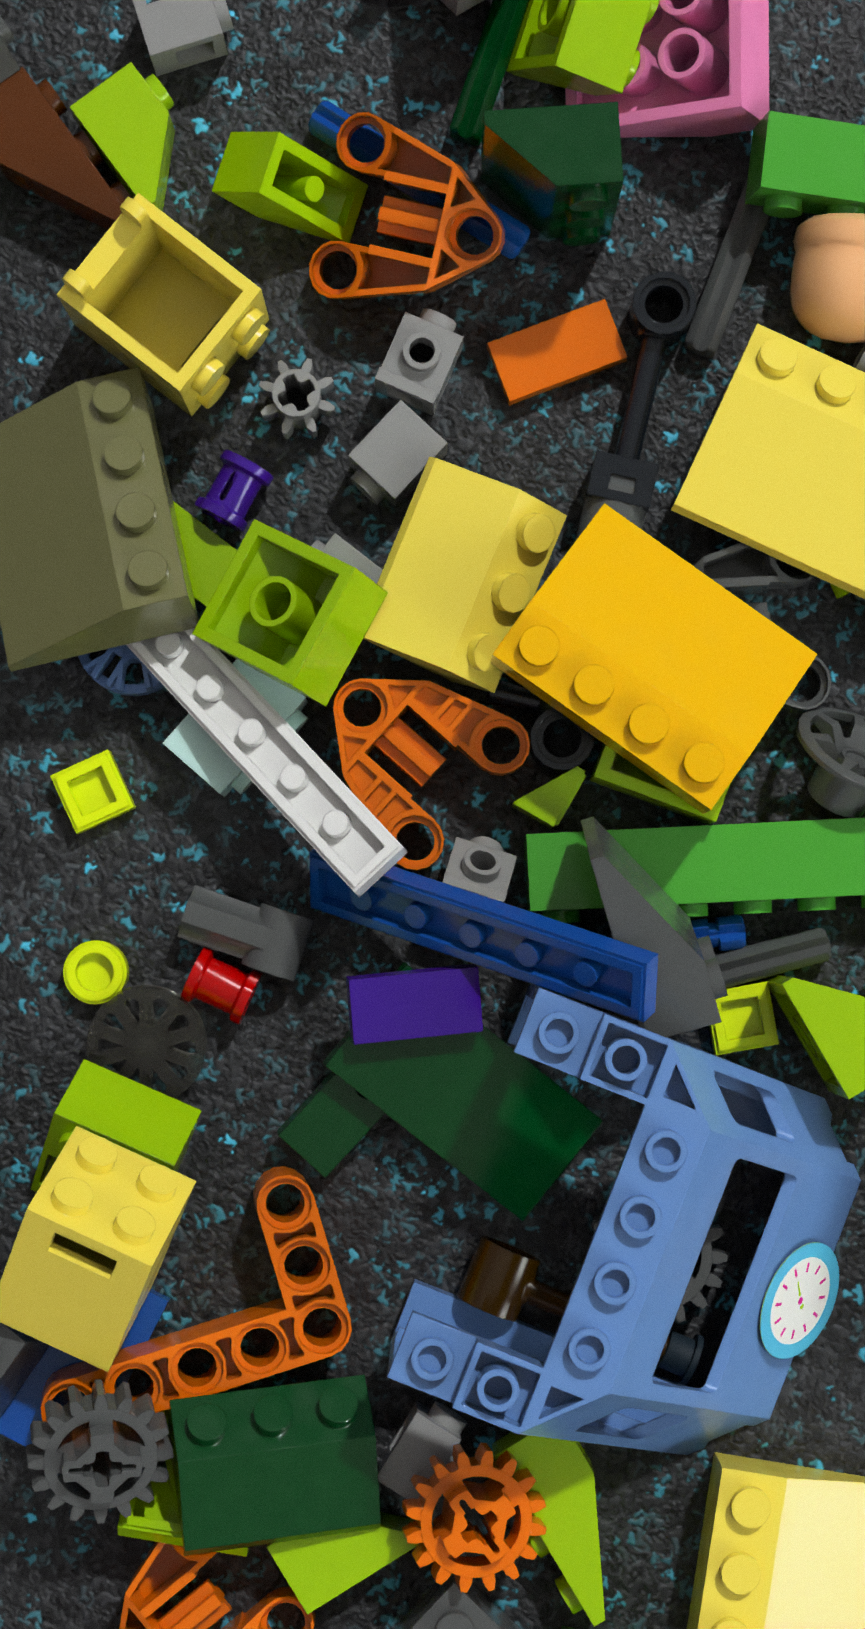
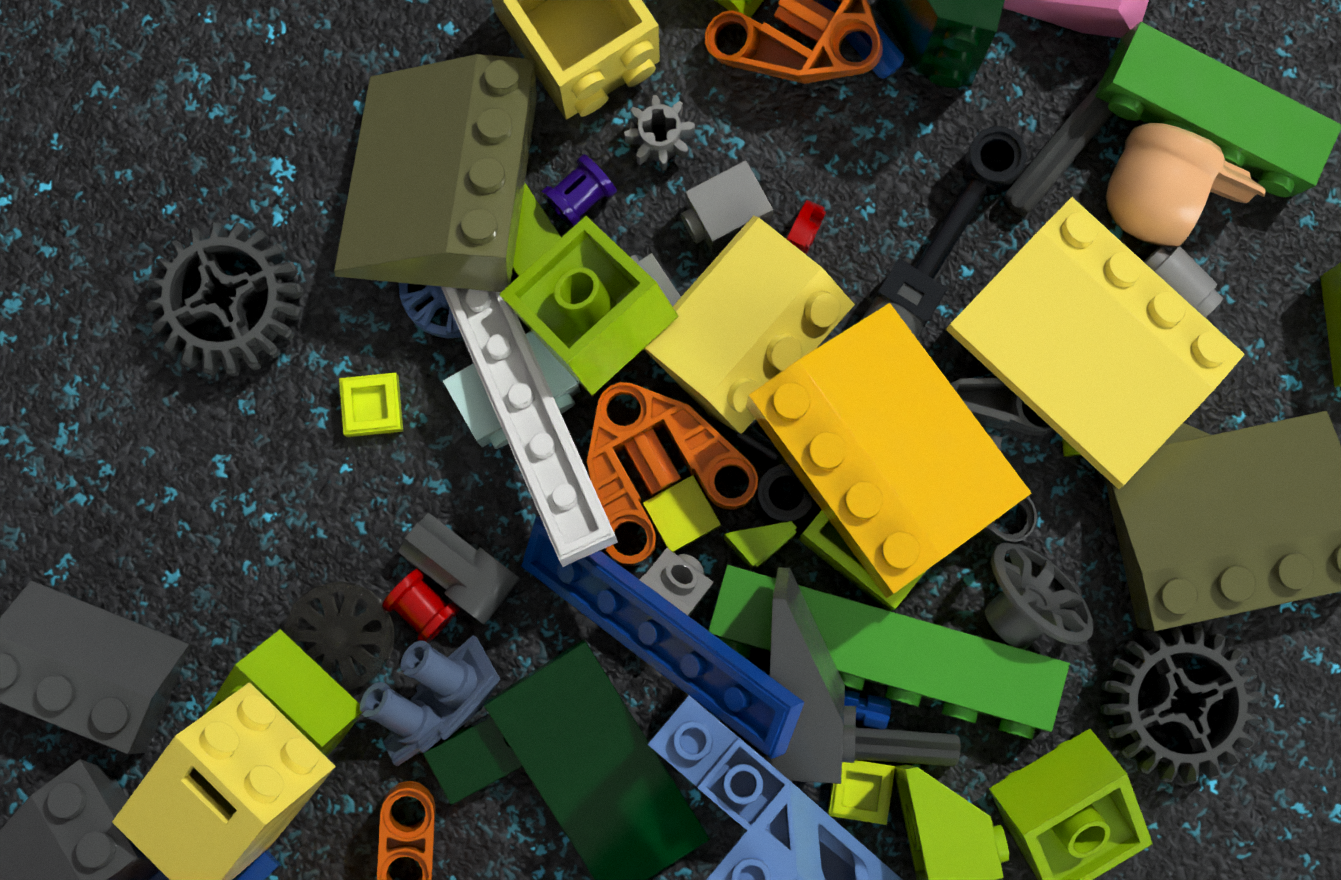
camera: 20 degrees right, 5 degrees down
(95, 971) = (318, 558): neon yellow tile -> none
(280, 1070) = (445, 699): none -> sand blue connector
(414, 1004) = (579, 677): dark purple tile -> none
(415, 382) = (771, 154): light grey brick -> none
(459, 796) = (681, 514): none -> neon yellow tile
(487, 447) = (806, 225): none -> red tile
(556, 352) = (893, 167): orange tile -> none

